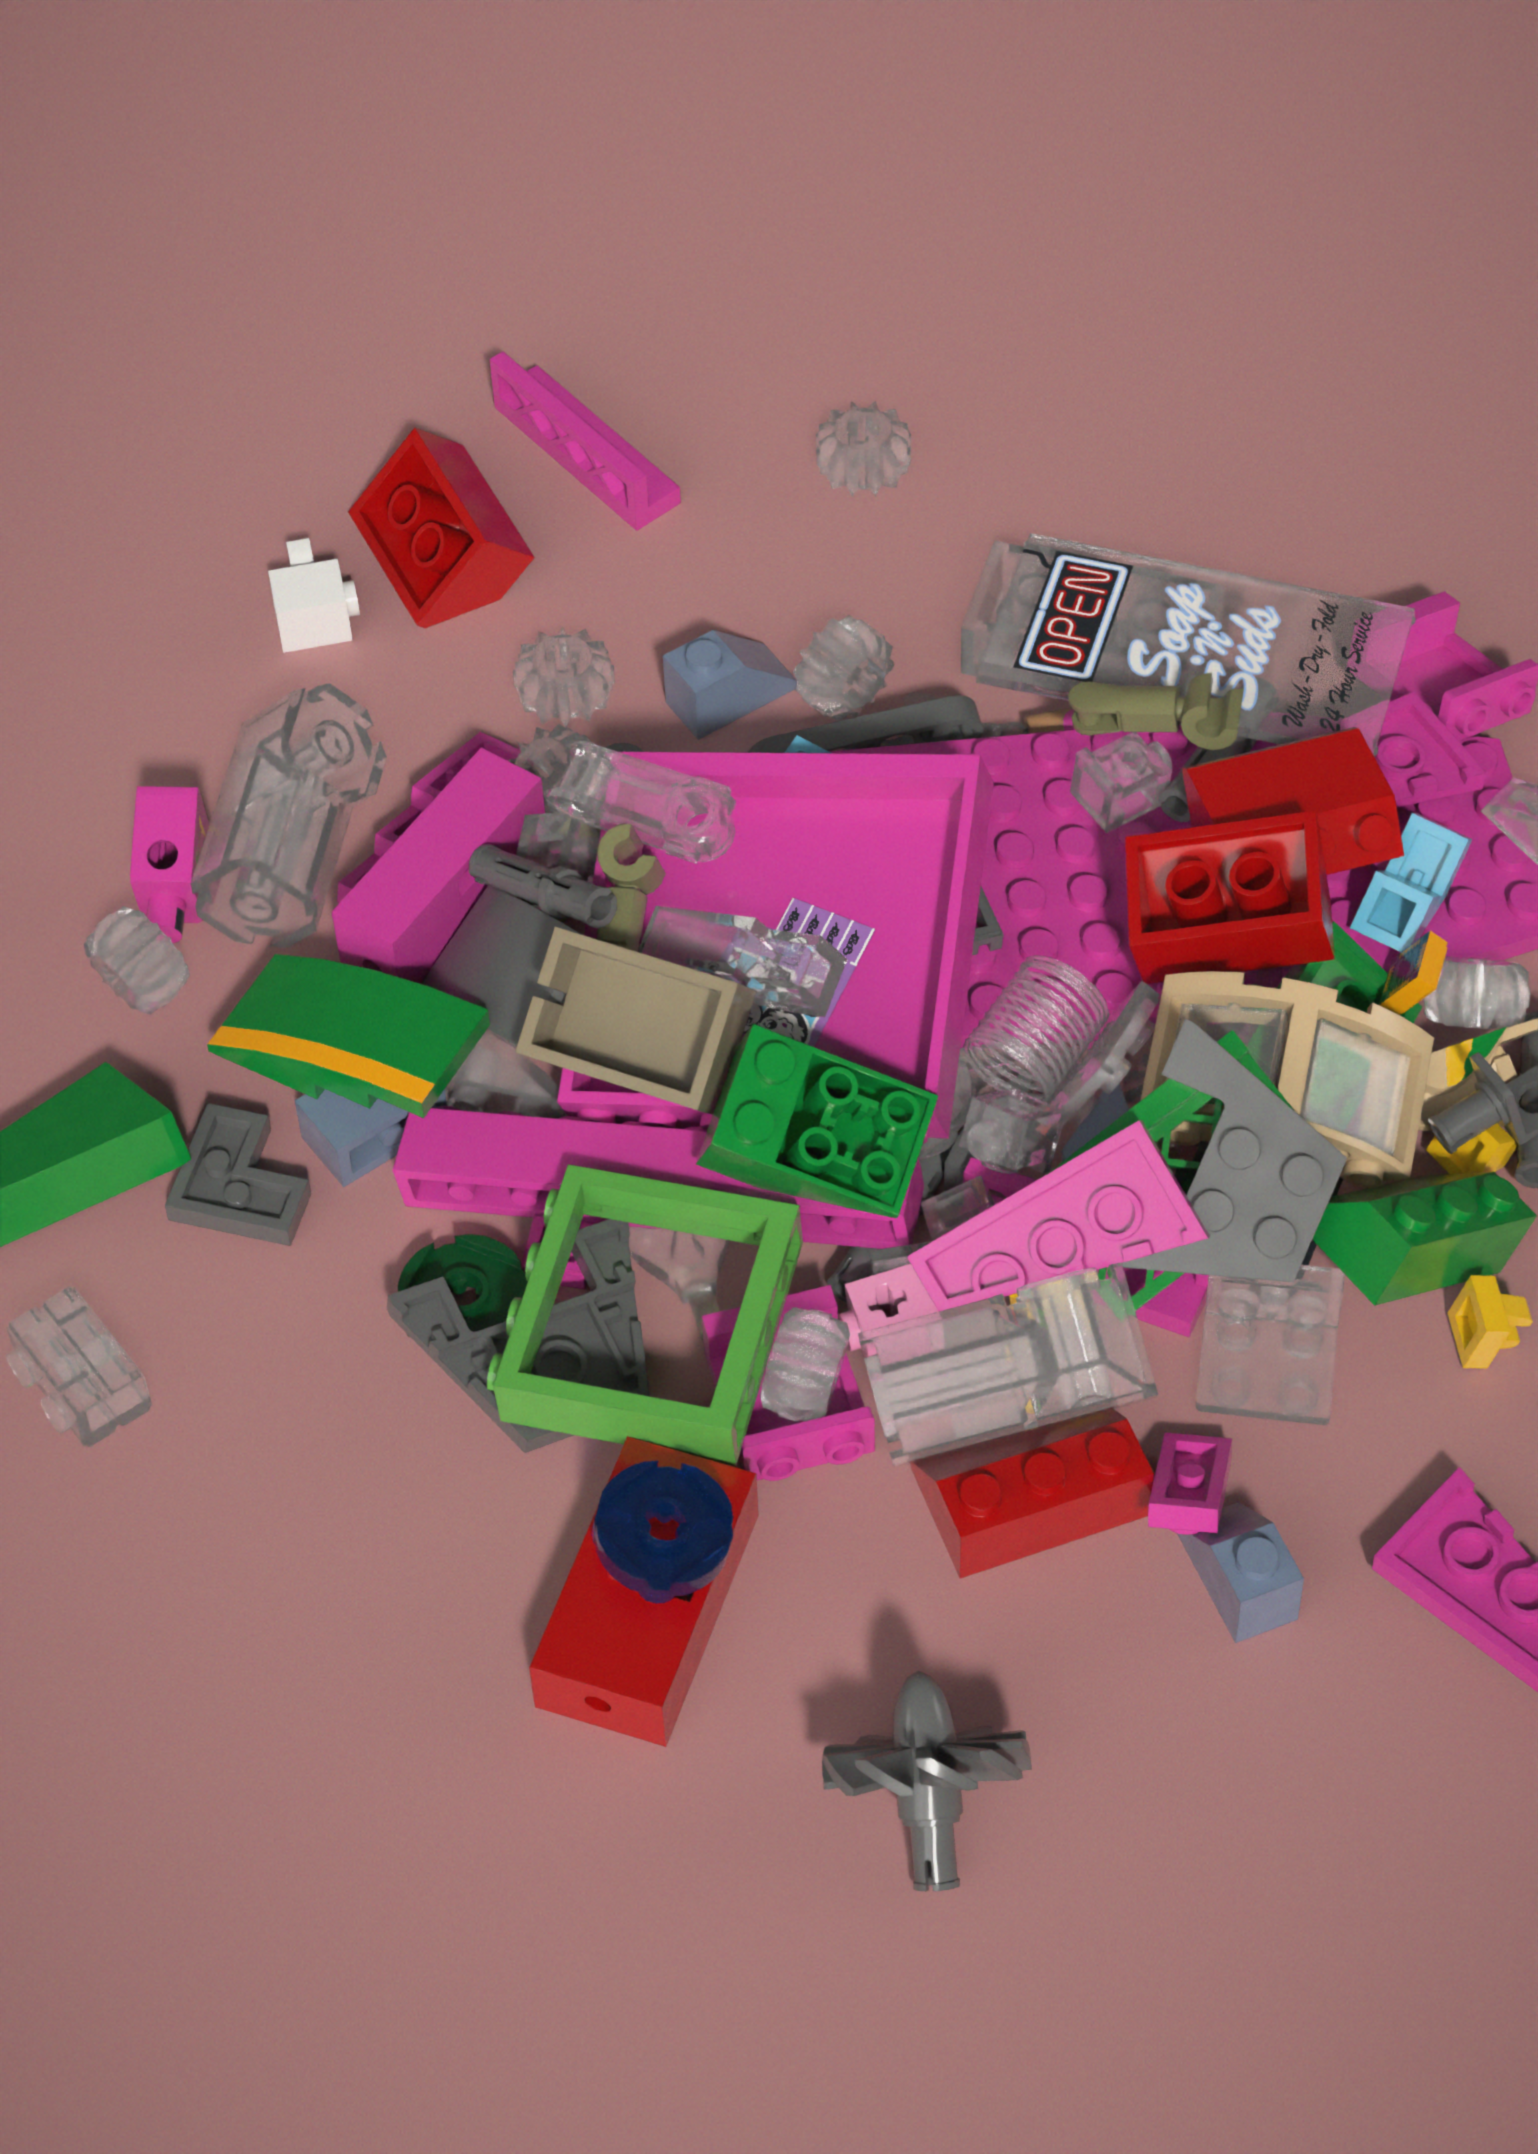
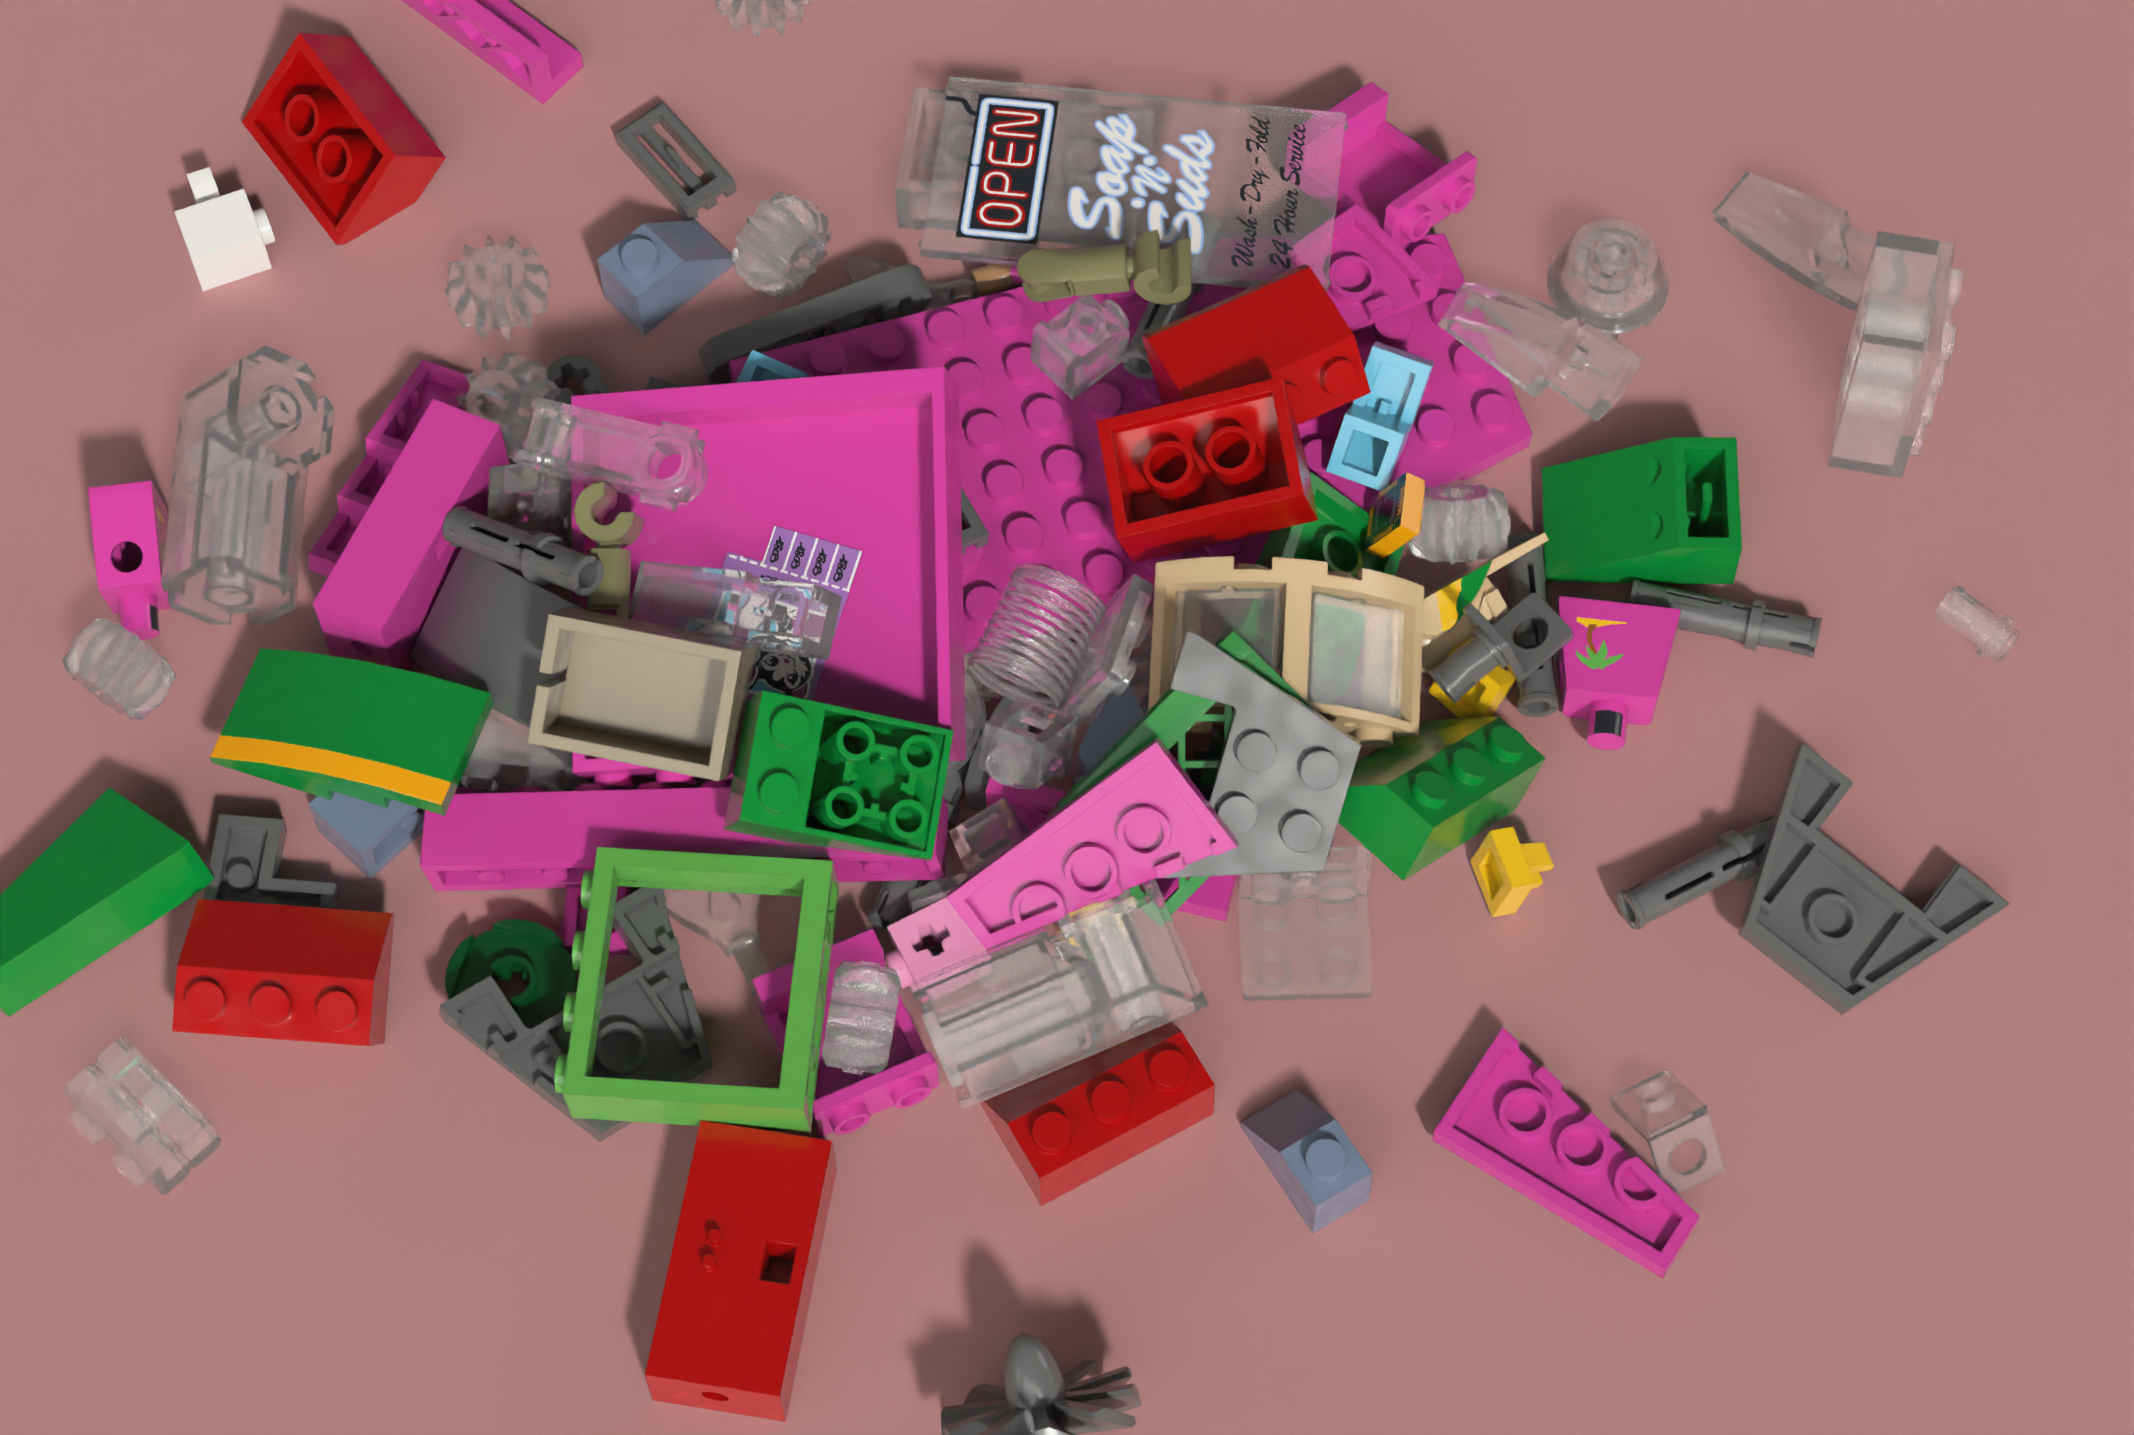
camera: 10 degrees left, 10 degrees up
(242, 1253) = (284, 973): none -> red slope
(658, 1566) = (756, 1257): clear blue plate -> none
(772, 622) = (701, 194): none -> dark grey tile
(1190, 1483) = (1249, 1083): dark pink plate -> none

